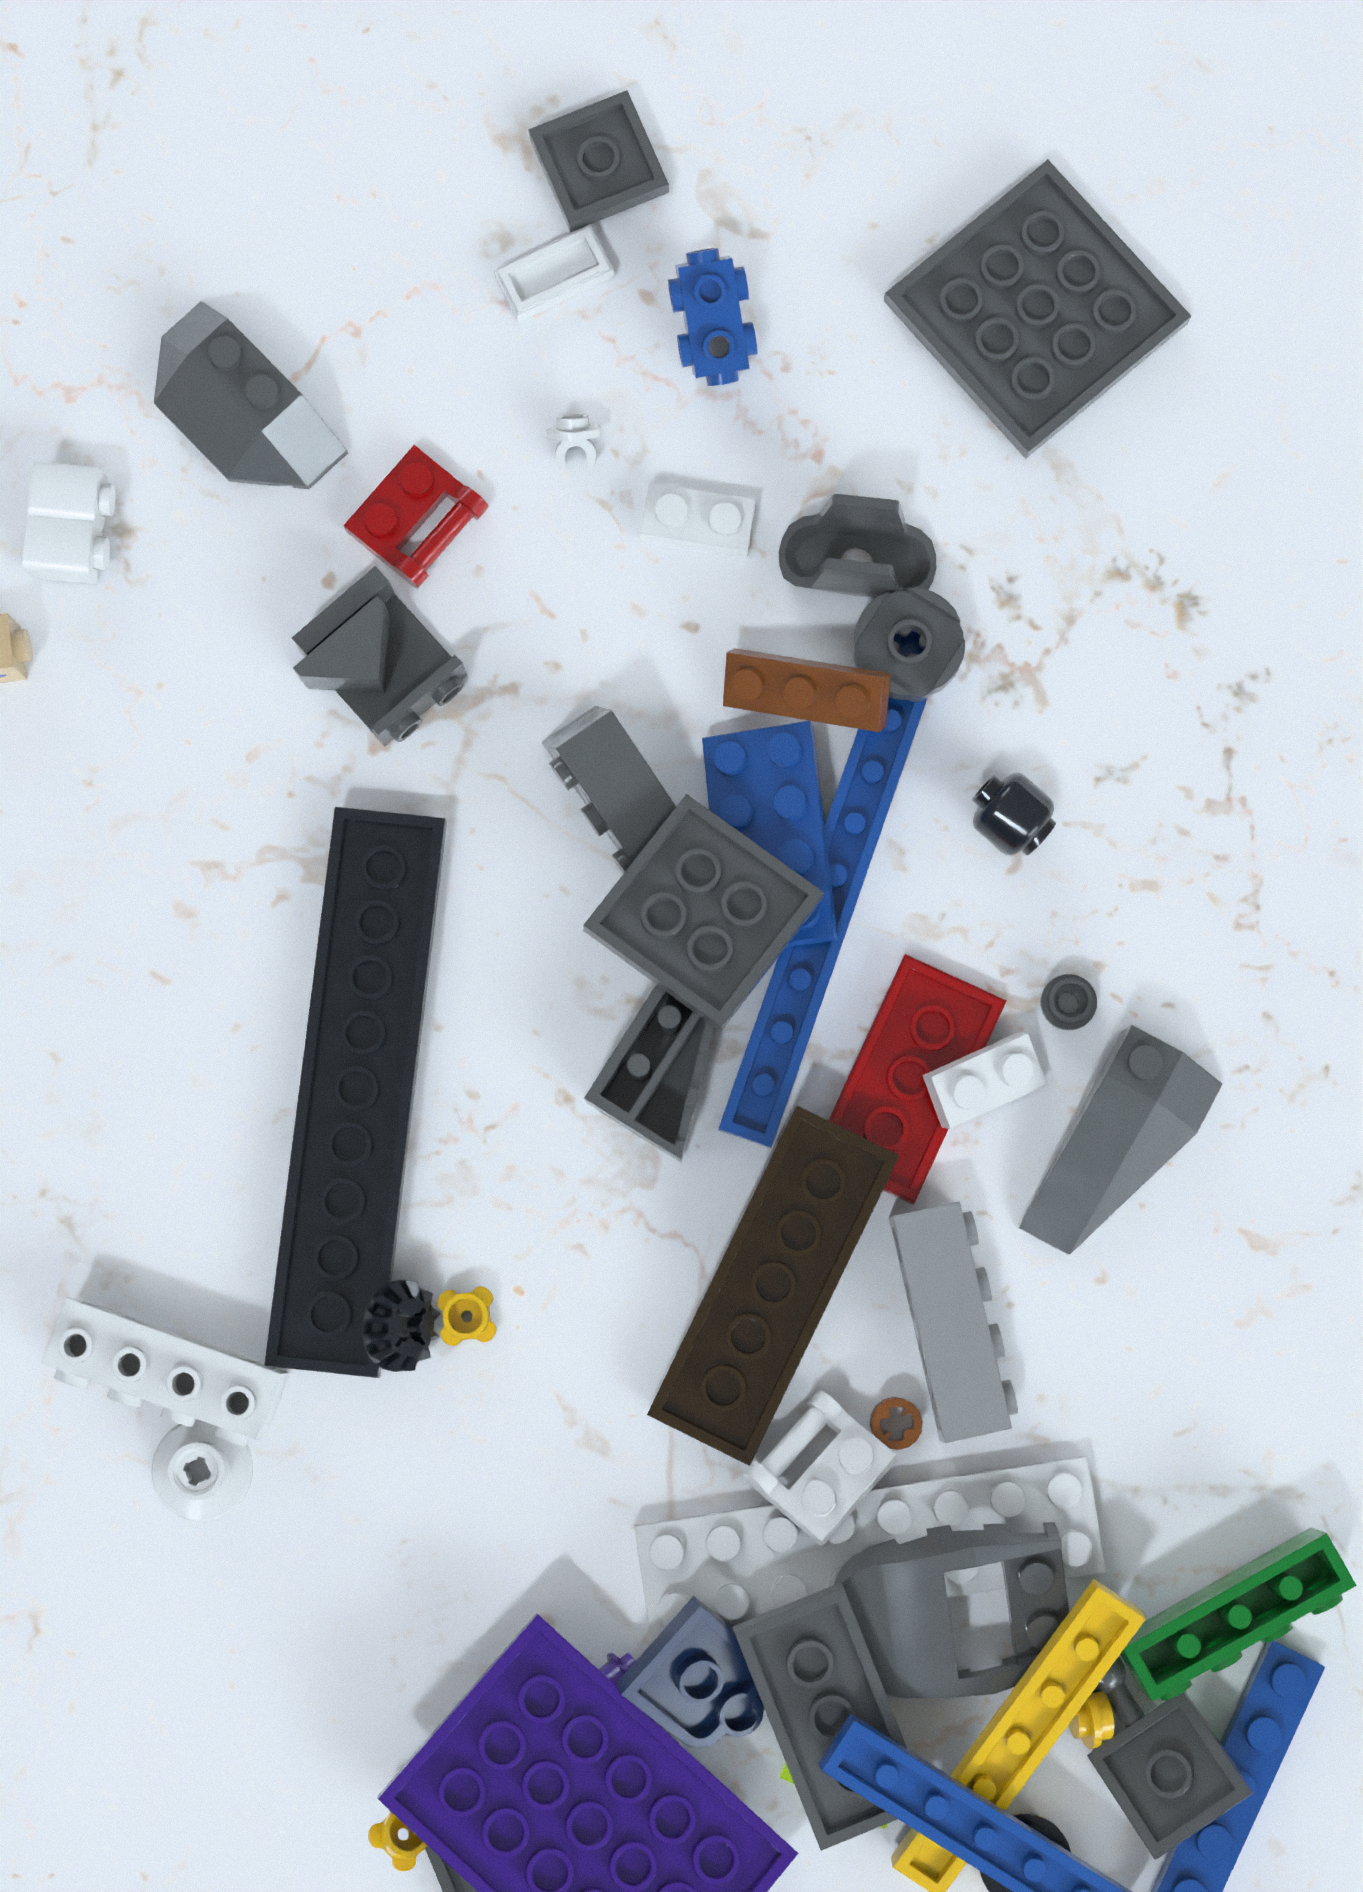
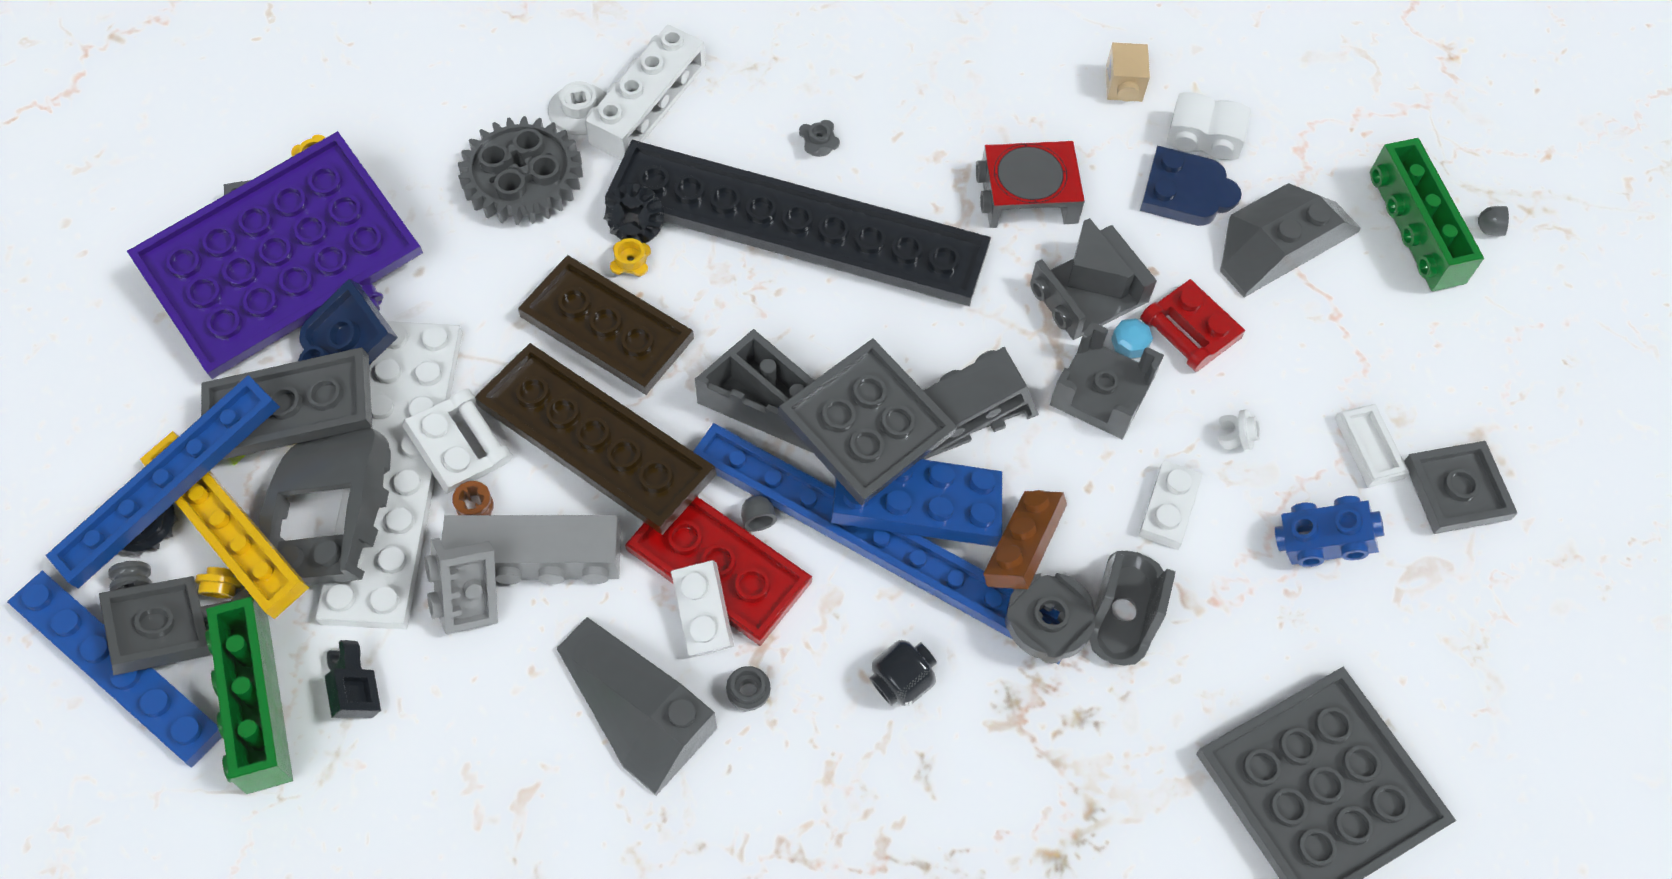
camera: 95 degrees right, 20 degrees down
(156, 119) = (1494, 220): none -> dark grey hinge
(176, 544) = (1188, 188): none -> dark blue plate
(177, 212) = (1425, 215): none -> green brick
(210, 1094) = (821, 145): none -> dark grey plate
(224, 766) = (1030, 178): none -> panel
(310, 1555) = (520, 170): none -> dark grey gear
(455, 595) = (1131, 338): none -> medium azure tile
(539, 620) = (1103, 384): none -> dark grey panel
(587, 1320) = (606, 324): none -> dark brown plate
(830, 1043) = (758, 513): none -> dark grey hinge
(1040, 1387) = (462, 586): none -> light grey bracket
(1111, 1837) = (129, 574): none -> dark grey bush
(1186, 1491) = (350, 688): none -> black plate

